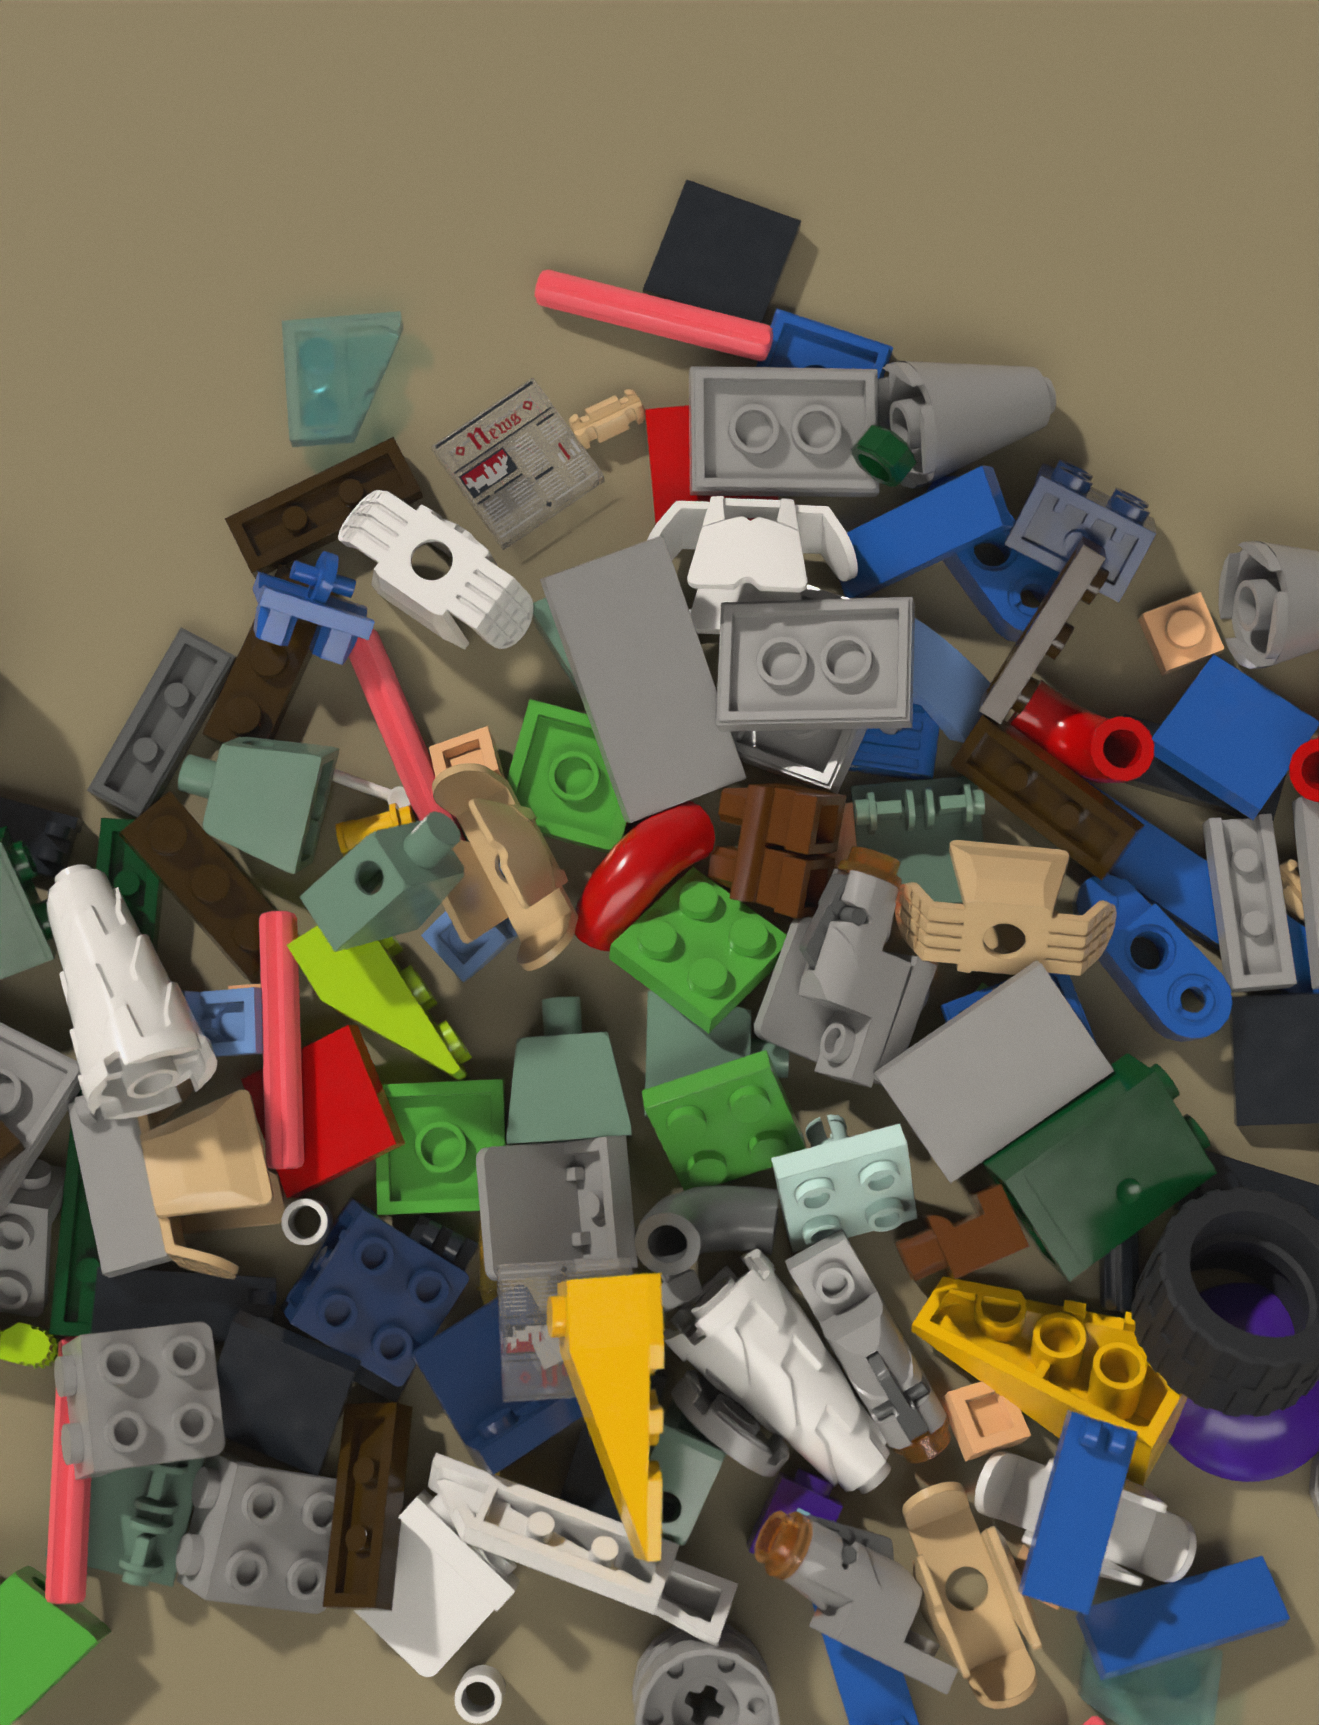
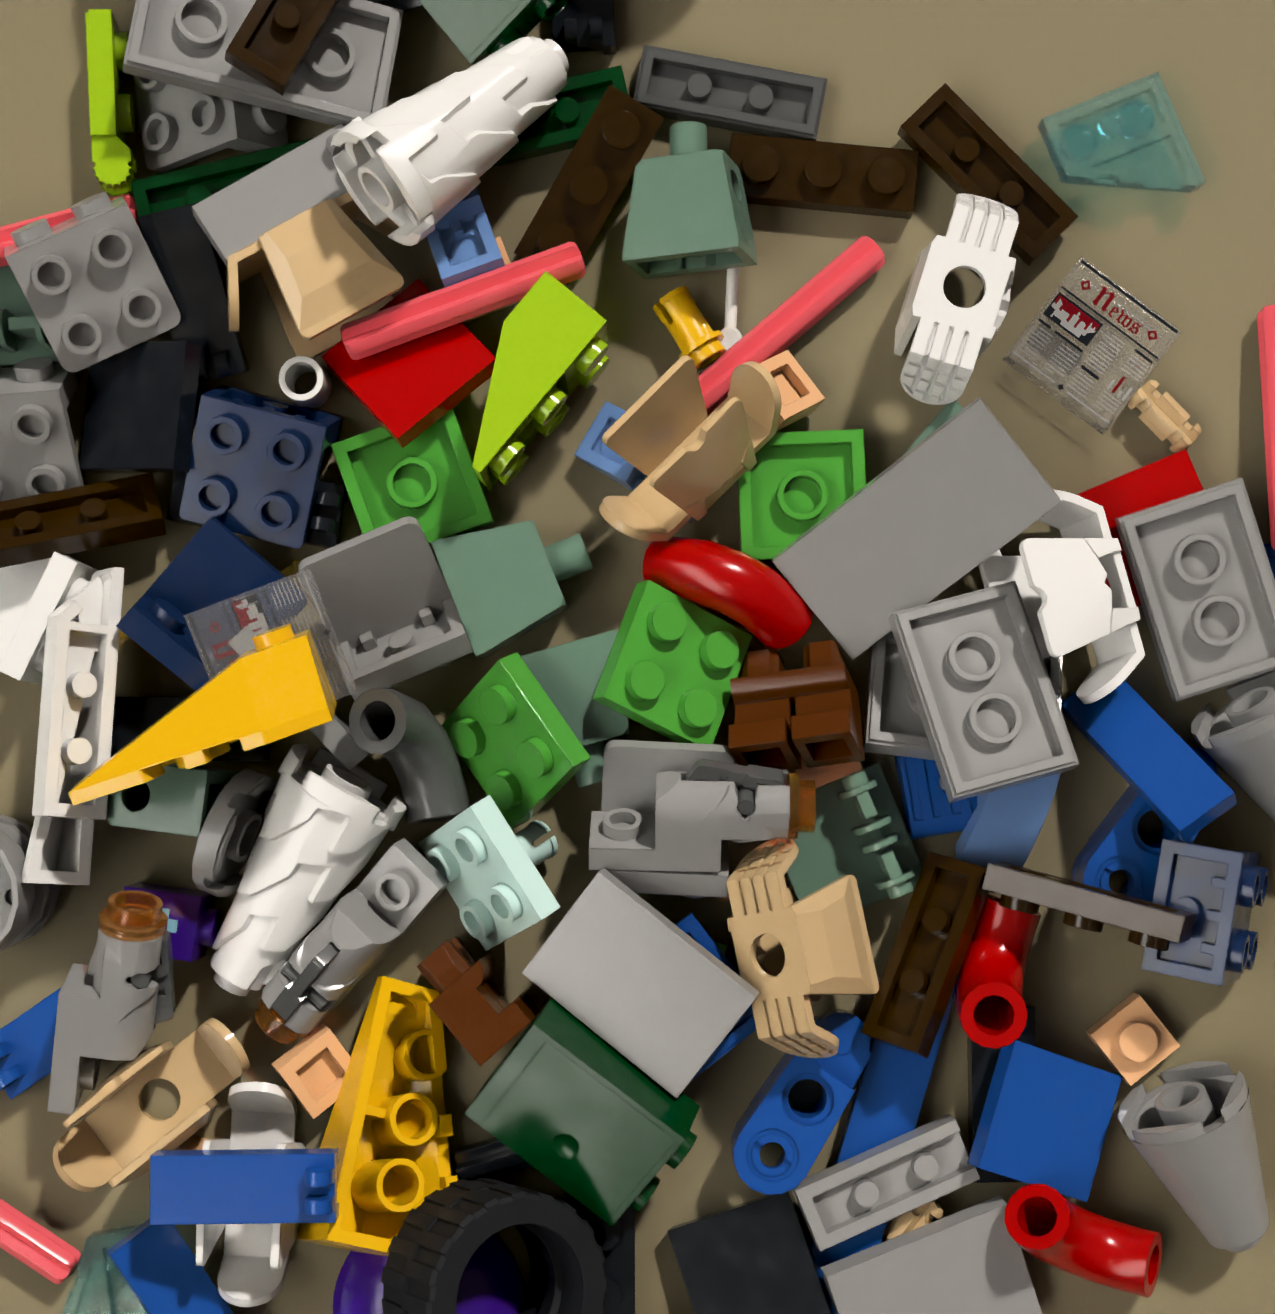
camera: 70 degrees right, 5 degrees up
(284, 602) = (882, 219): blue hips -> none
(409, 867) = (652, 358): sand green torso -> none
(883, 455) = (1214, 693): dark green tile -> none

